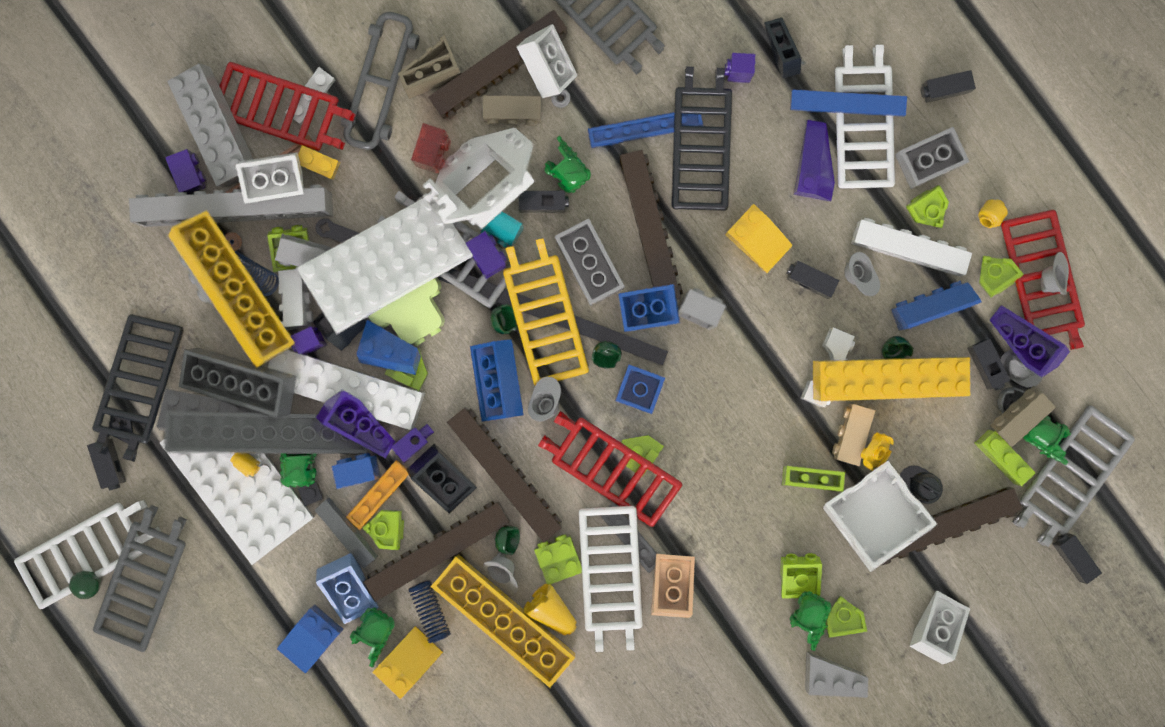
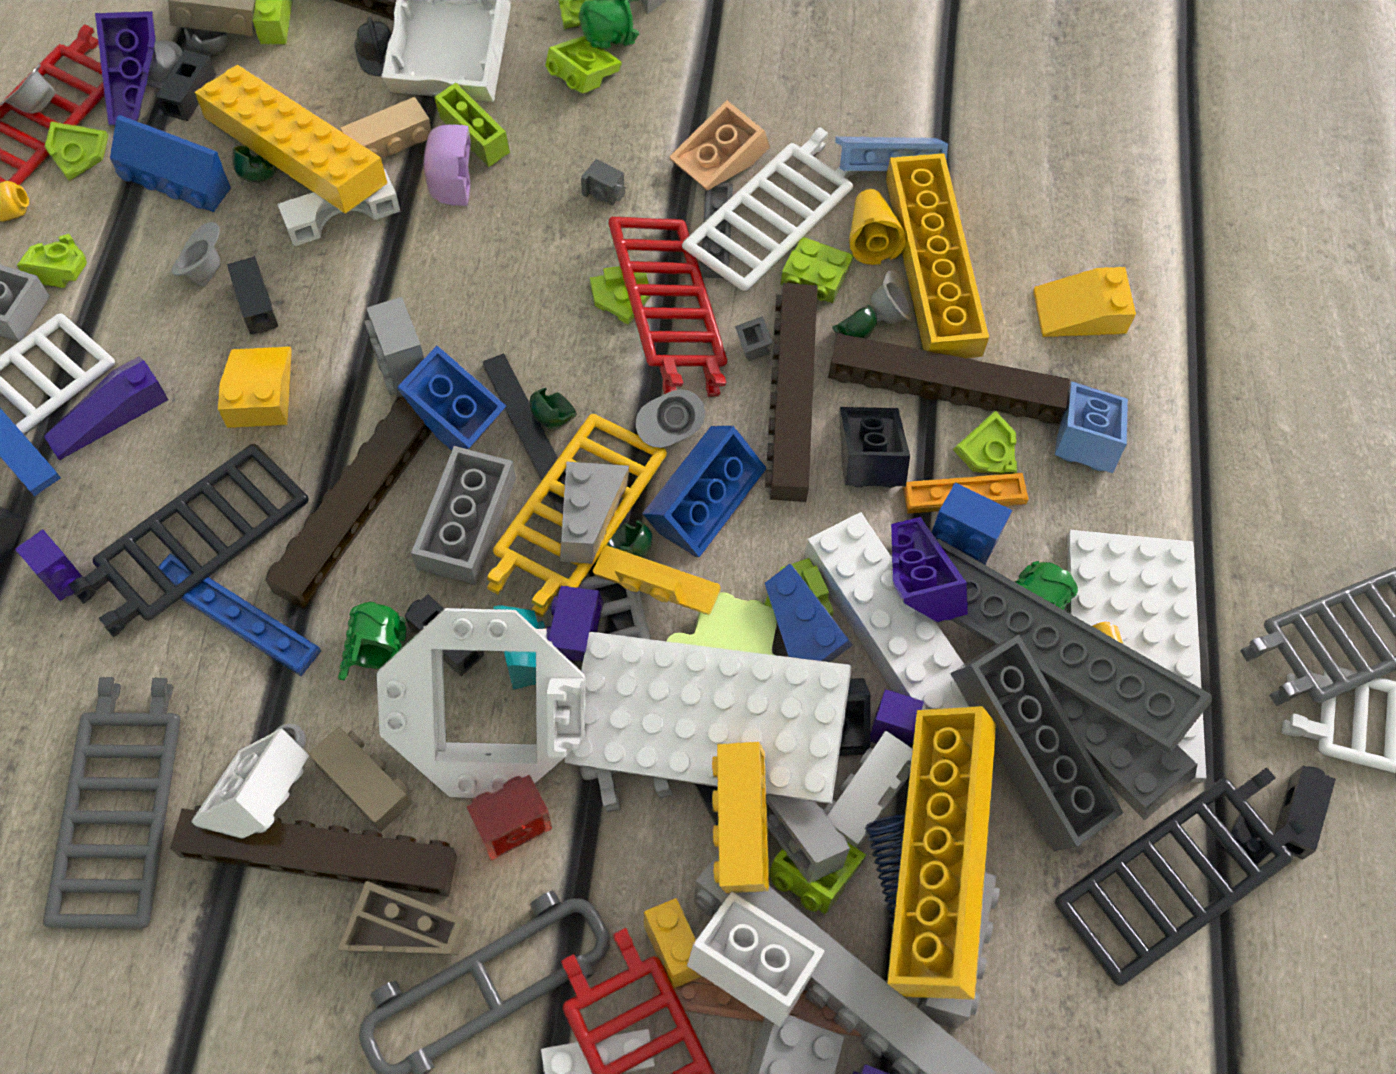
camera: 140 degrees left, 25 degrees down
(234, 240) = (882, 950): dark orange tile -> none
(310, 638) = (1180, 412): blue slope -> none
(311, 493) = (1050, 553): black plate -> none
(324, 225) = (741, 818): none -> yellow brick
(346, 533) = (1042, 483): dark grey tile -> none
(374, 632) = (1099, 356): green helmet -> none
(405, 449) = (876, 498): dark purple torso -> none
(439, 636) = (1006, 348): dark blue piece -> none
(468, 305) = (657, 580): none -> yellow bracket
(532, 313) = (589, 505): none -> light grey wedge
(546, 482) = (754, 338): none -> dark grey brick
(583, 669) = (875, 152): none -> medium blue panel
(640, 389) = (554, 342): blue brick -> none
(711, 509) = (603, 182): none -> dark grey brick
(797, 441) = (447, 164): none -> lavender brick
(877, 451) = (380, 94): yellow plate -> none
(911, 247) = (121, 240): white brick -> none

